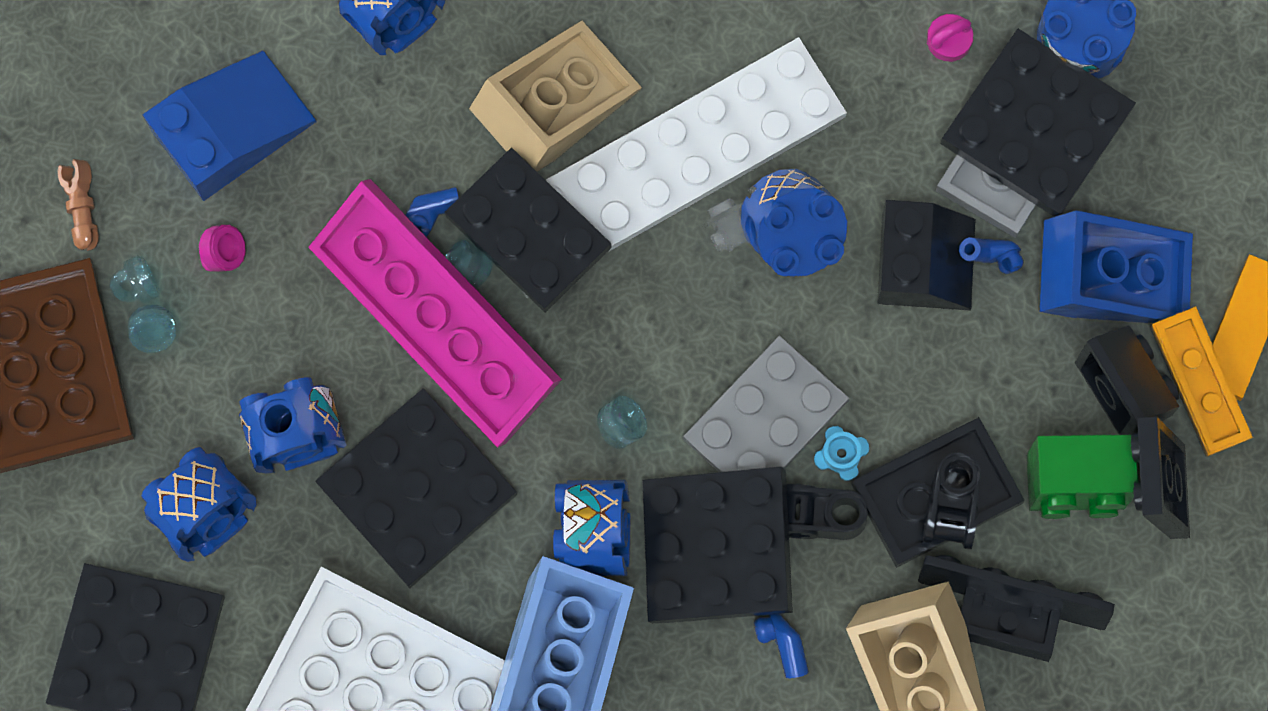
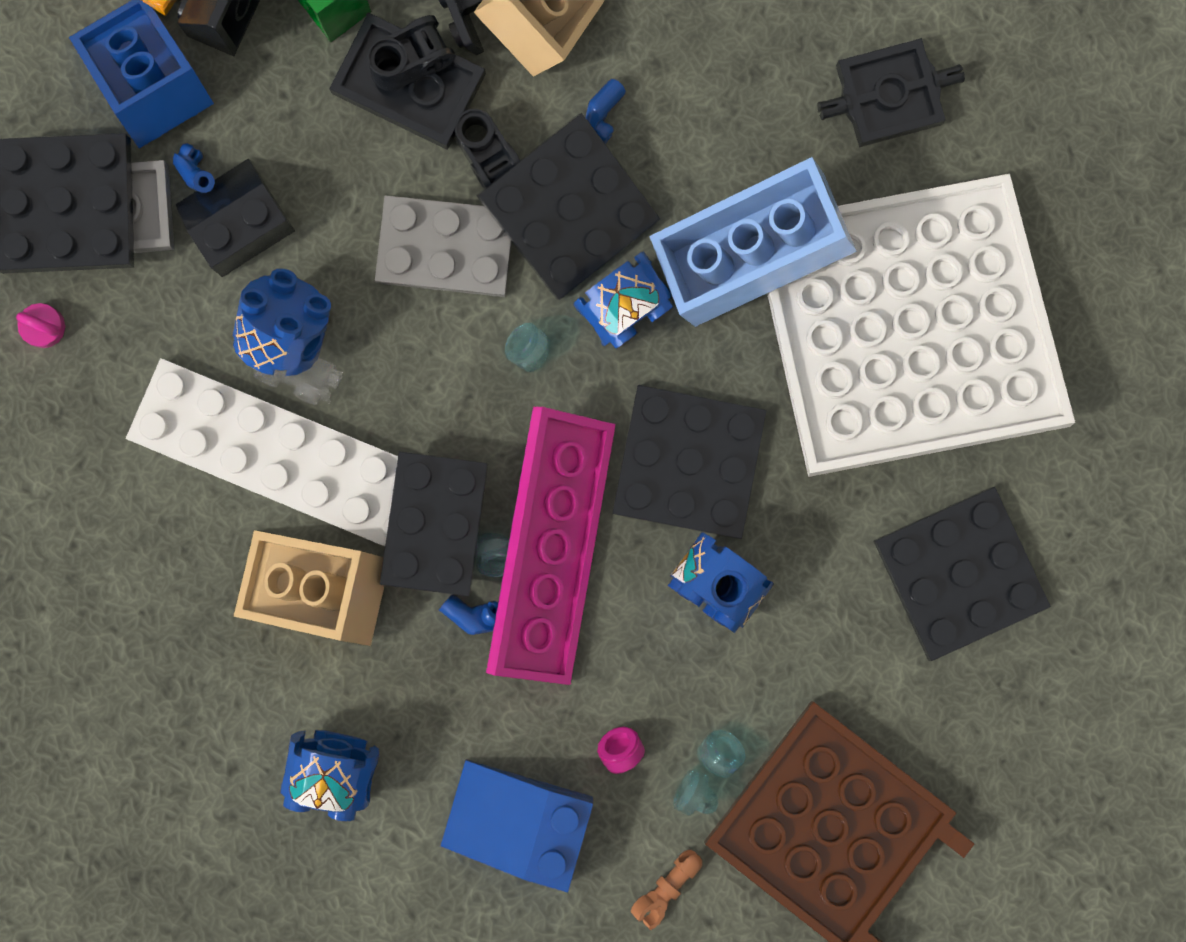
camera: 135 degrees left, 10 degrees up
(198, 504) = (829, 607): blue brick -> none
(853, 446) = (435, 161): medium azure plate -> none

